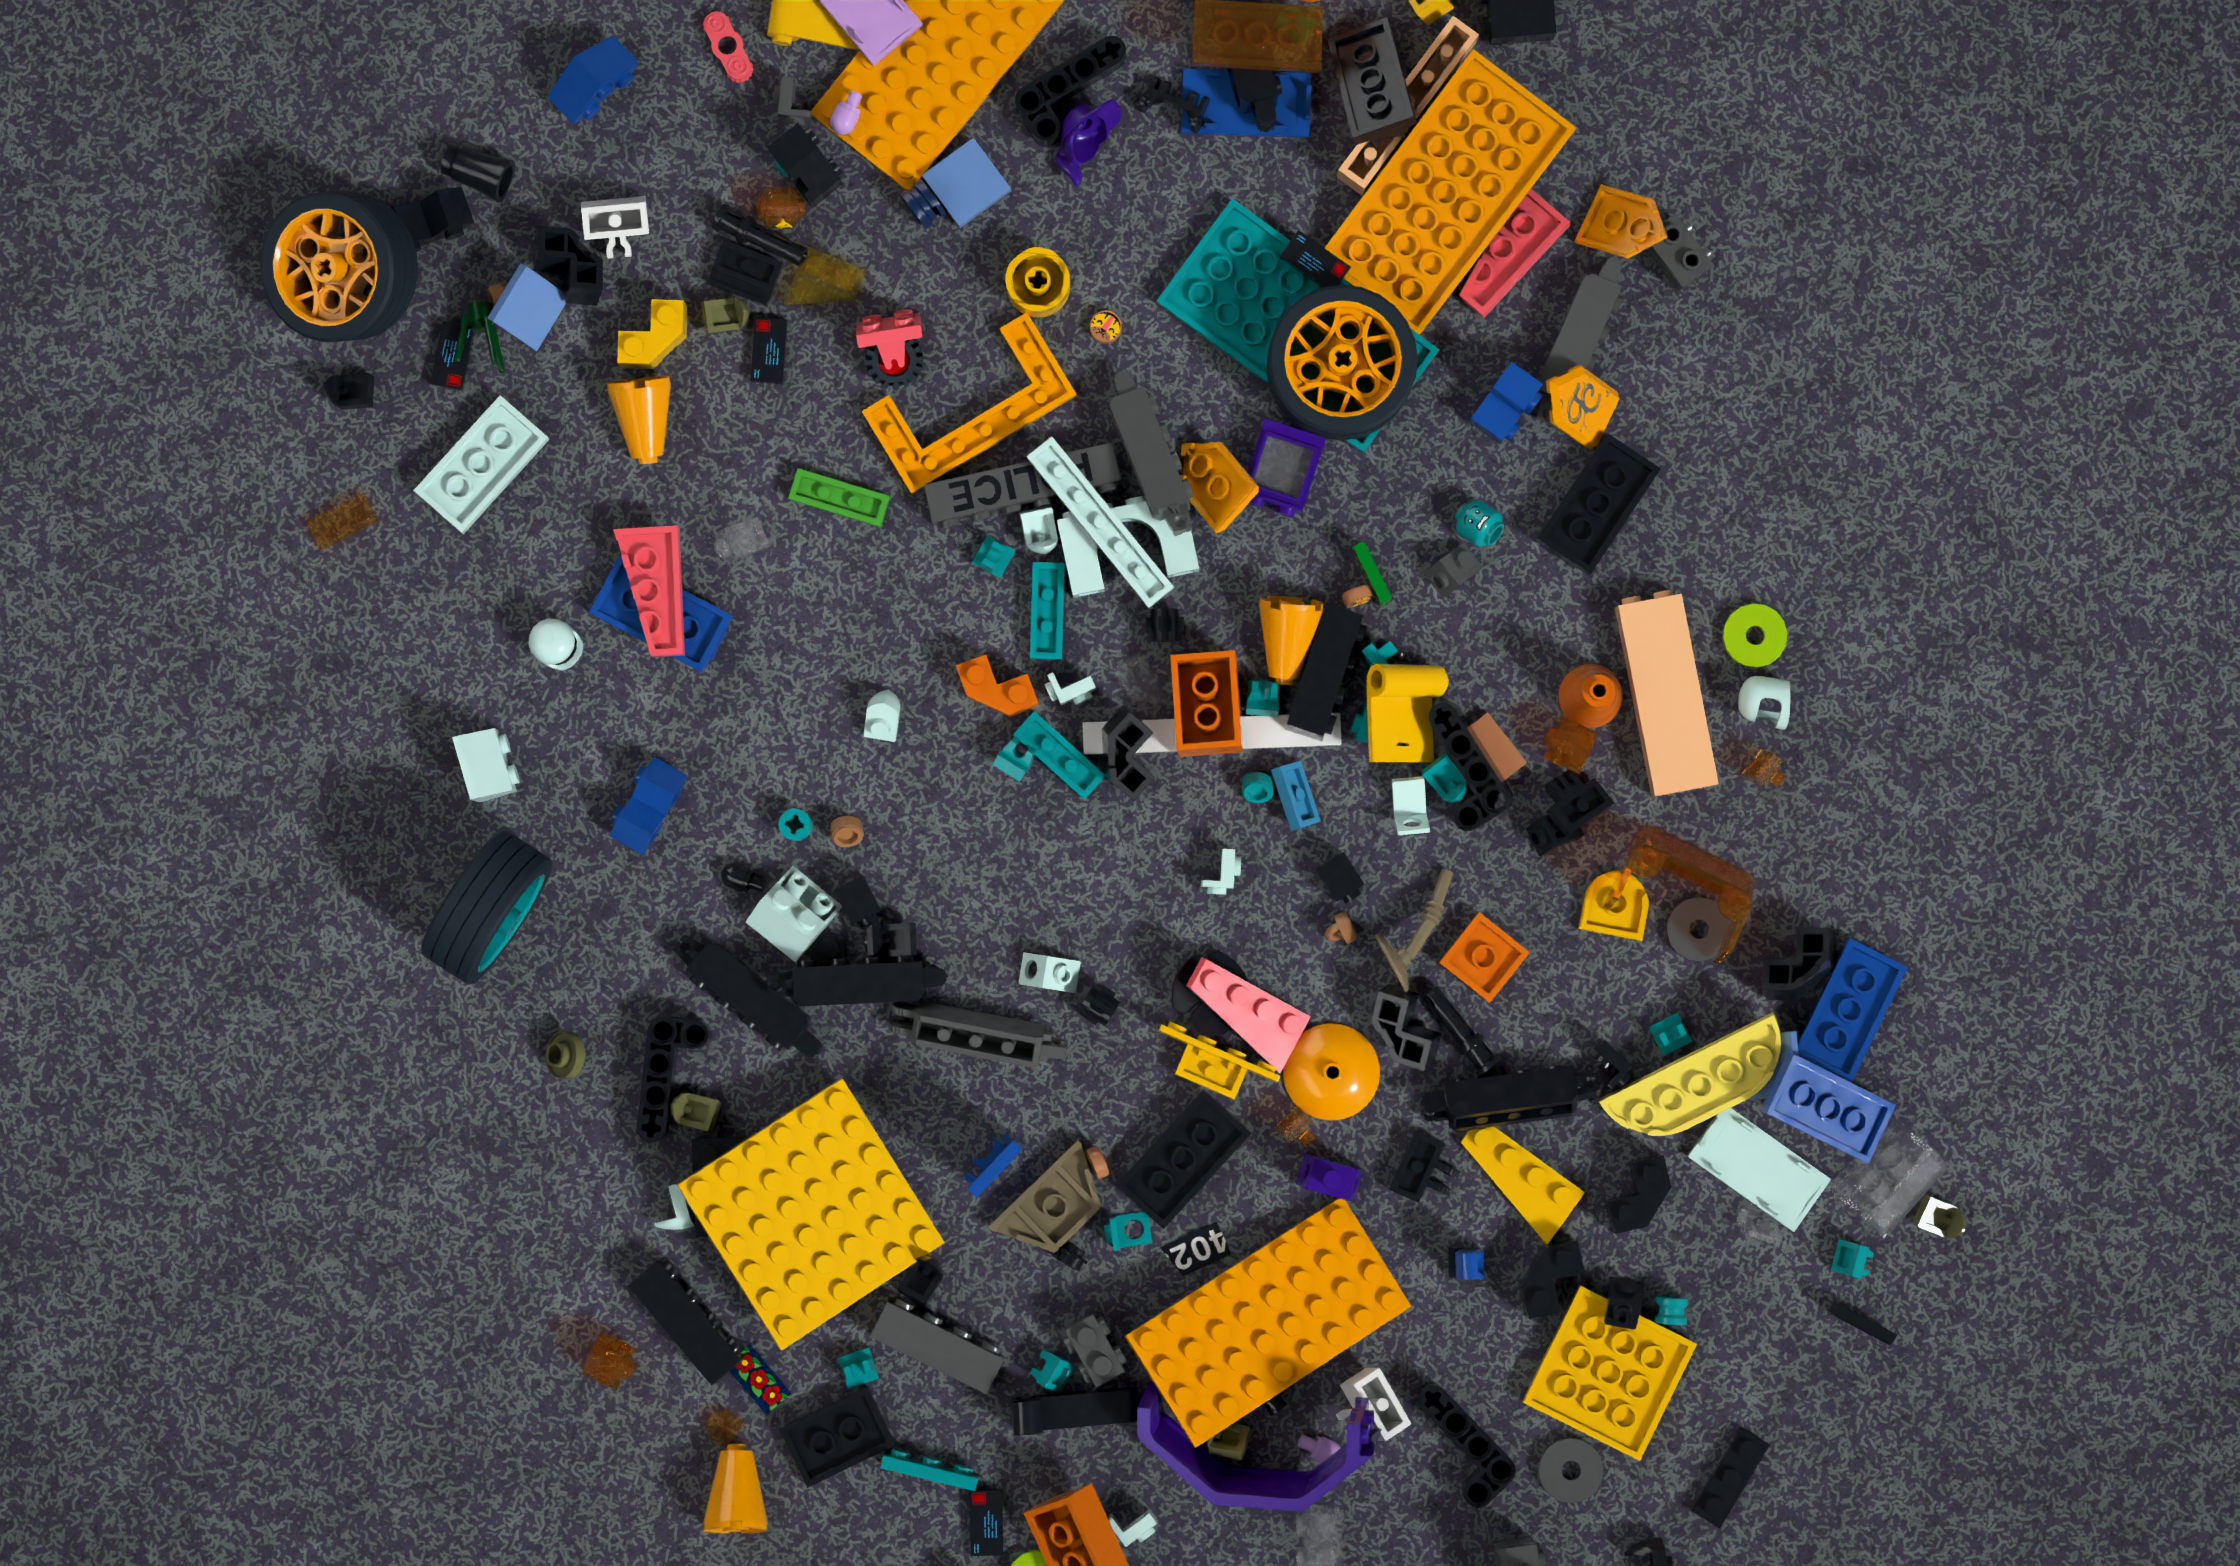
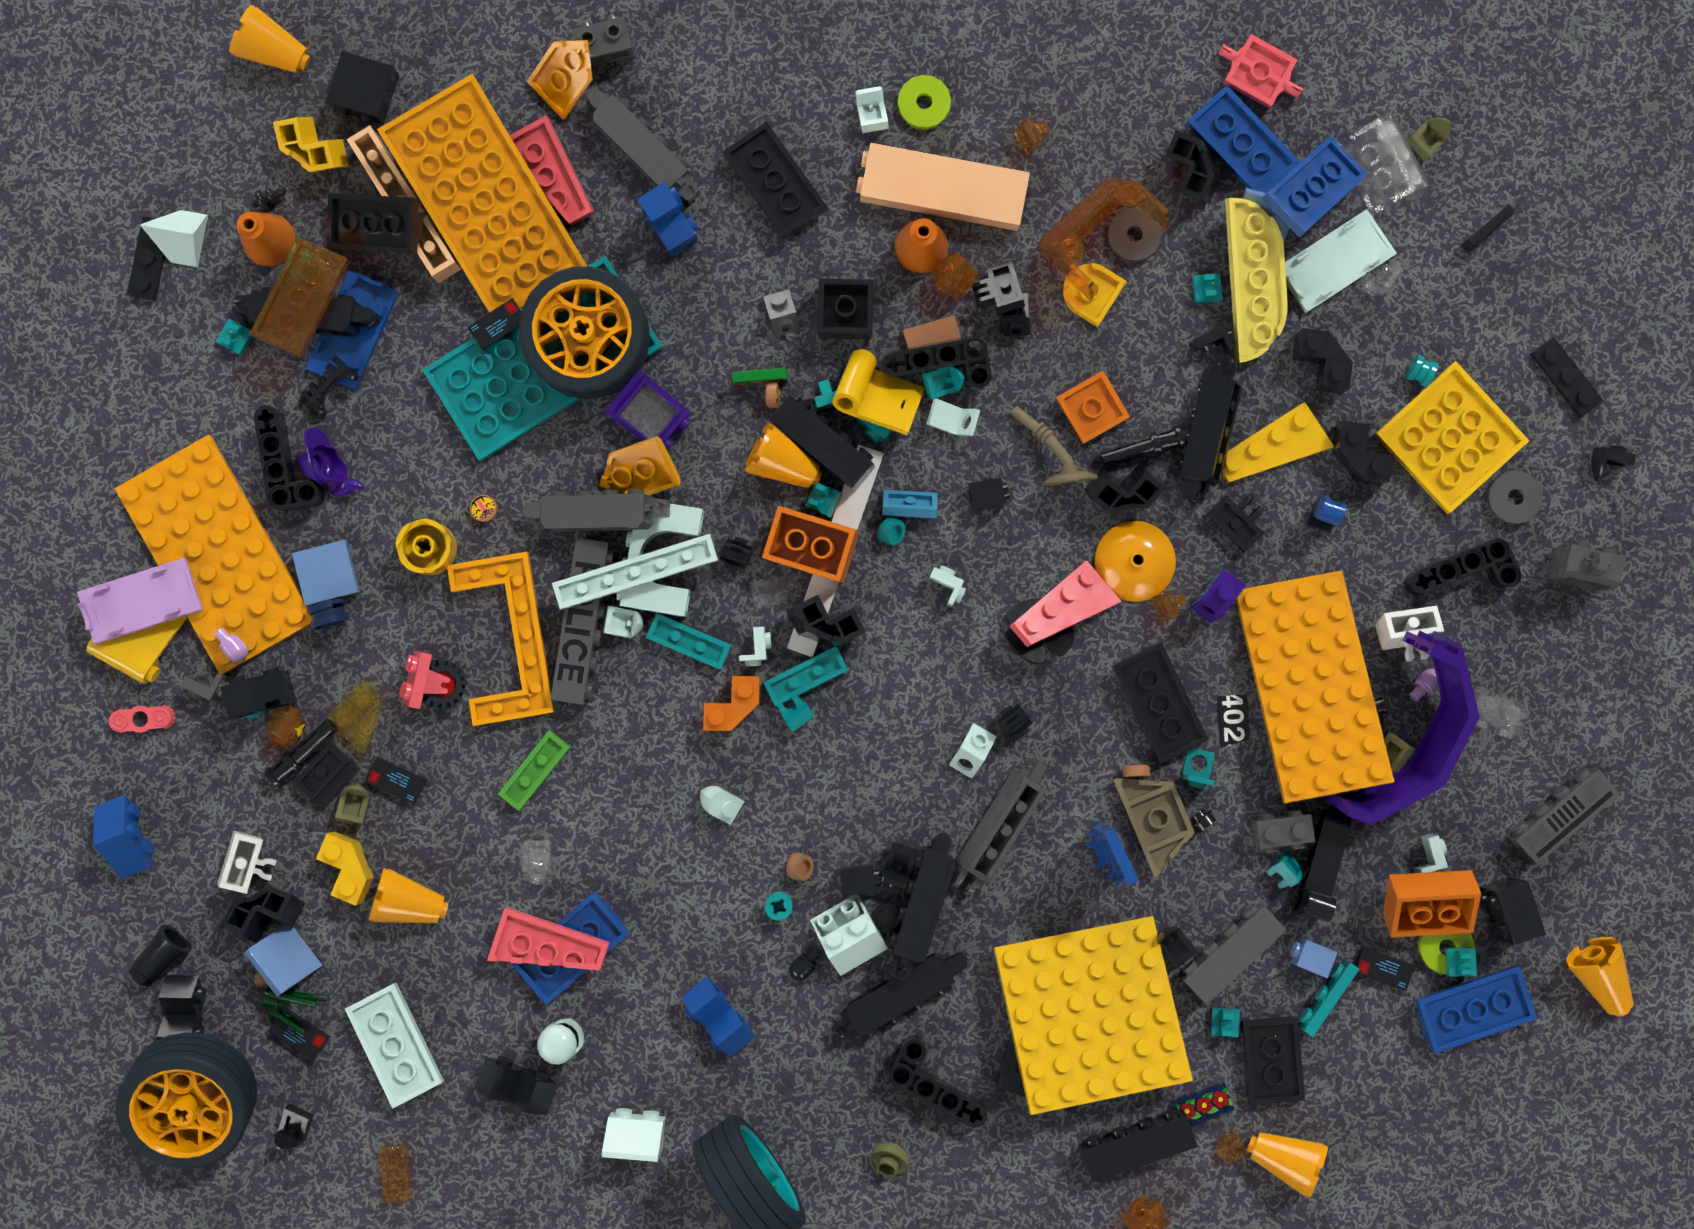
camera: 70 degrees left, 0 degrees up
(489, 609) = (512, 1083): none -> black brick
(684, 1215) = (1055, 1117): light aqua plate -> none
(695, 1111) = (974, 1073): olive plate -> none
(968, 1436) = (1313, 957): none -> medium blue brick
(993, 556) = (629, 666): teal tile -> none
(1213, 1067) = (1097, 652): yellow bracket -> none
(1346, 929) = (1028, 508): medium nougat tile -> none
(1479, 523) = (753, 278): teal head -> none
(1484, 638) = (845, 309): none -> black brick
(1581, 405) = (693, 162): light orange tile -> none
(1624, 1302) = (1402, 404): black bracket -> none
(1721, 580) = (871, 109): none -> light aqua bracket
(1762, 687) = (967, 112): light aqua helmet -> none
(1851, 1259) = (1434, 218): teal tile -> none
(1940, 999) = (1260, 71): none -> coral plate

